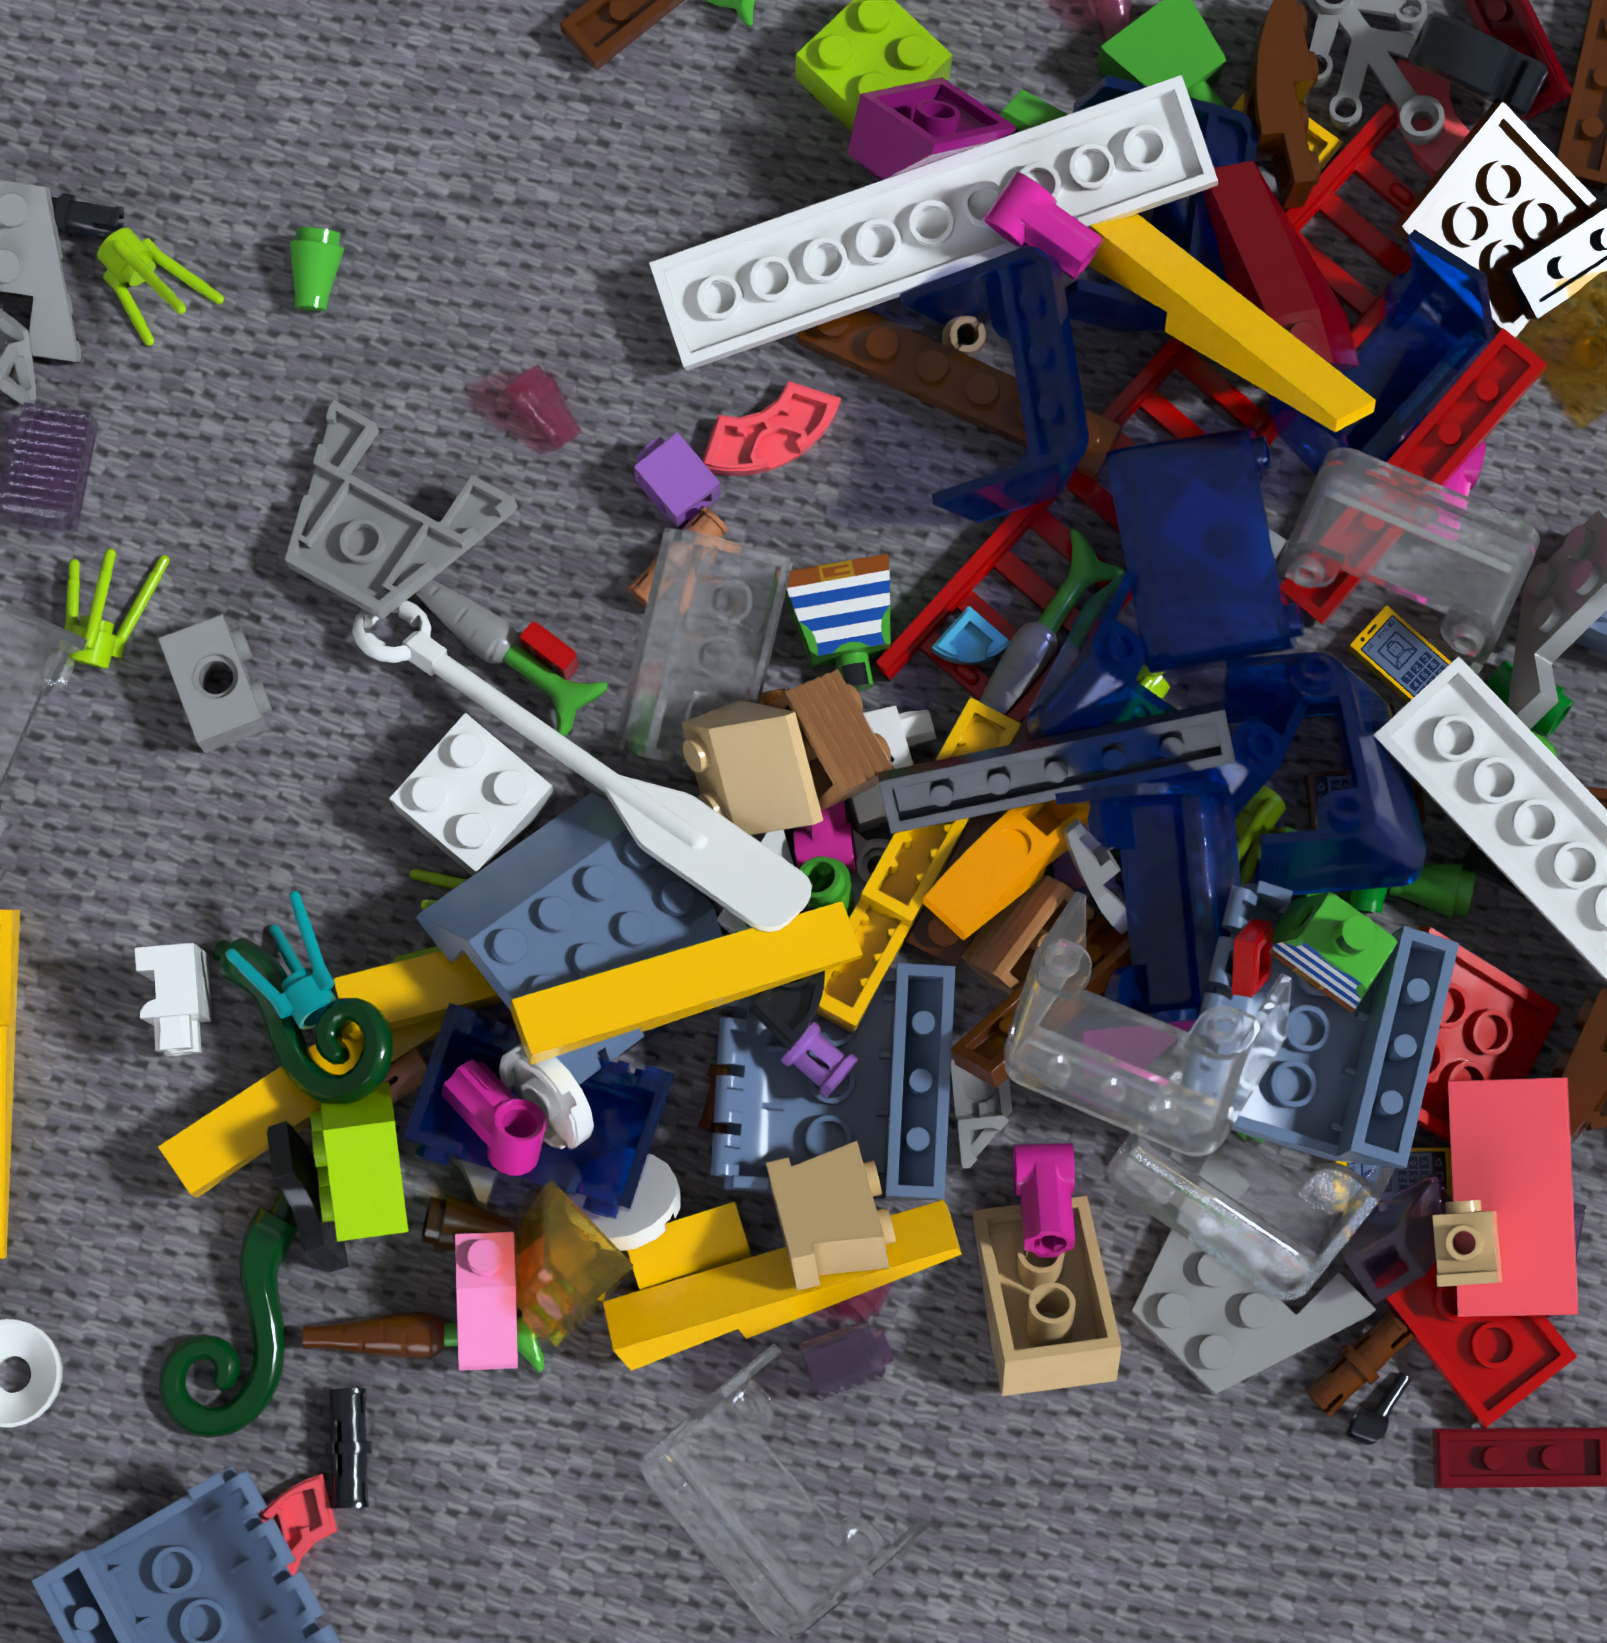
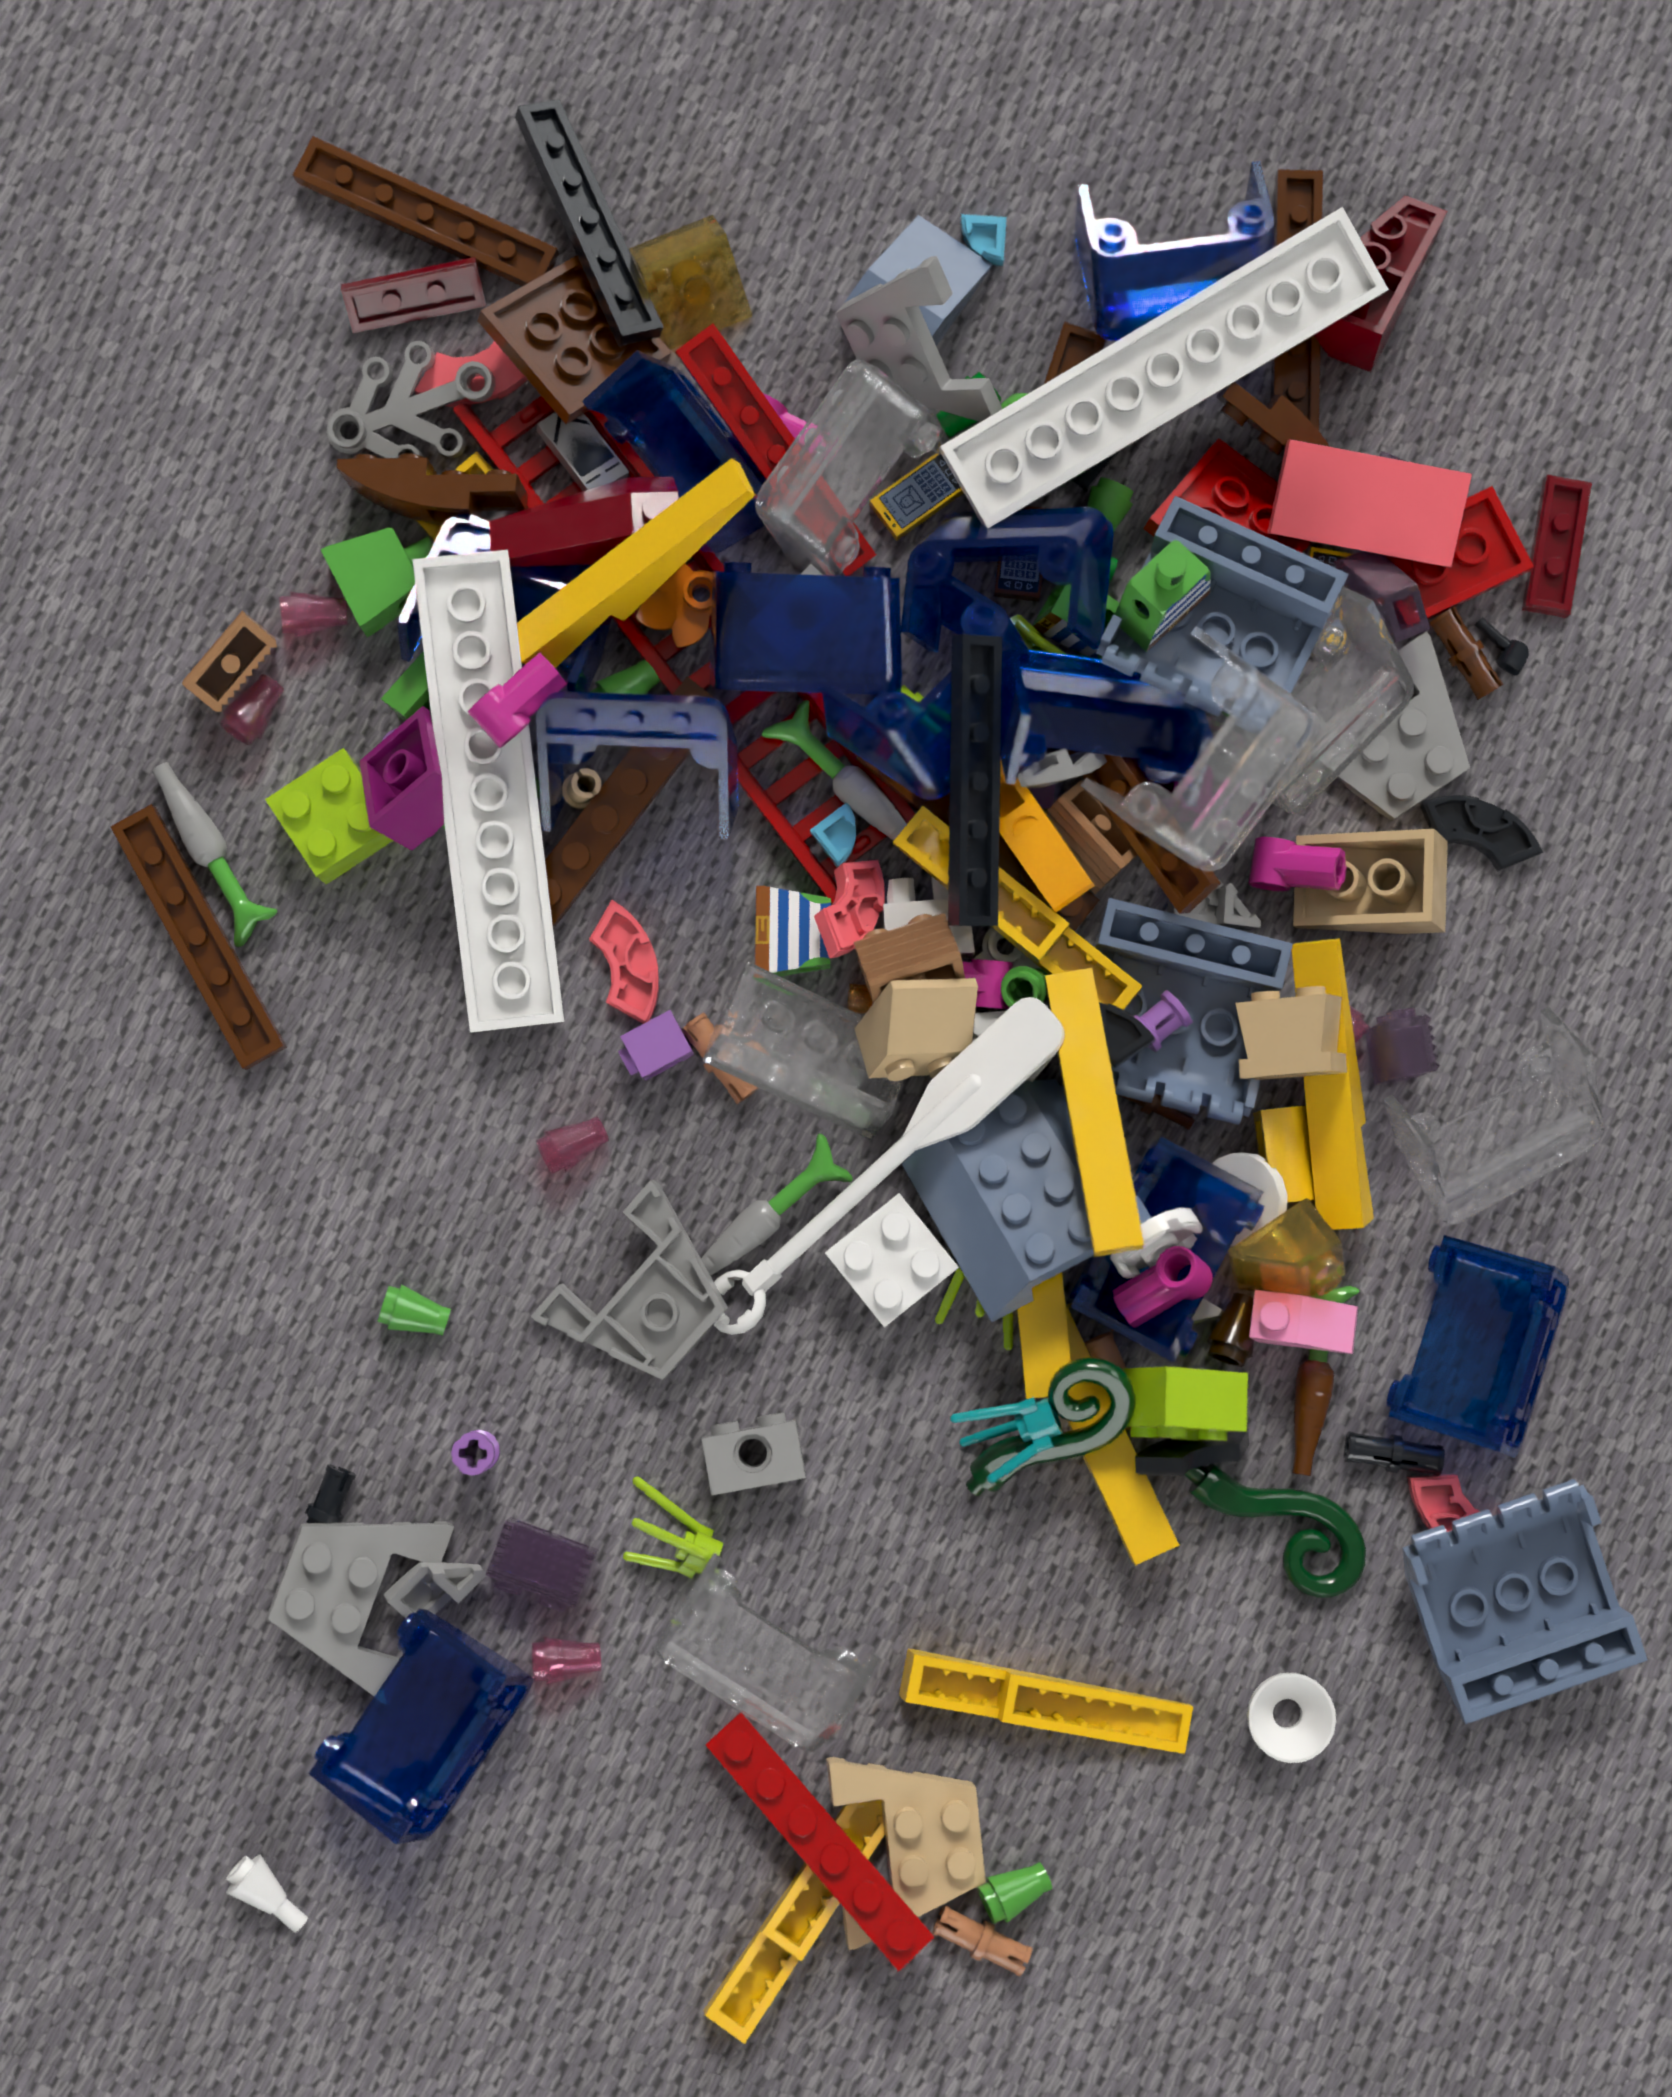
camera: 75 degrees left, 5 degrees up
(133, 262) = (375, 1465): lime plant -> none
(179, 372) = (465, 1462): none -> medium lavender bush
(181, 995) = (1012, 1525): white hips -> none
(493, 1535) = (1482, 1346): none -> clear blue windscreen
(549, 650) = (779, 1175): red tile -> none
(886, 675) = (855, 908): none -> coral tile
(1098, 364) = (633, 680): none -> bright green cone
(1149, 1424) = (1484, 825): none -> black tile
(1206, 400) = (676, 609): none -> orange plate
(1252, 957) = (1162, 657): red tile -> none
(1367, 260) = (582, 451): none -> light grey tile
(1478, 63) = (439, 326): black animal -> none
(1480, 1265) = (1425, 547): tan brick -> none

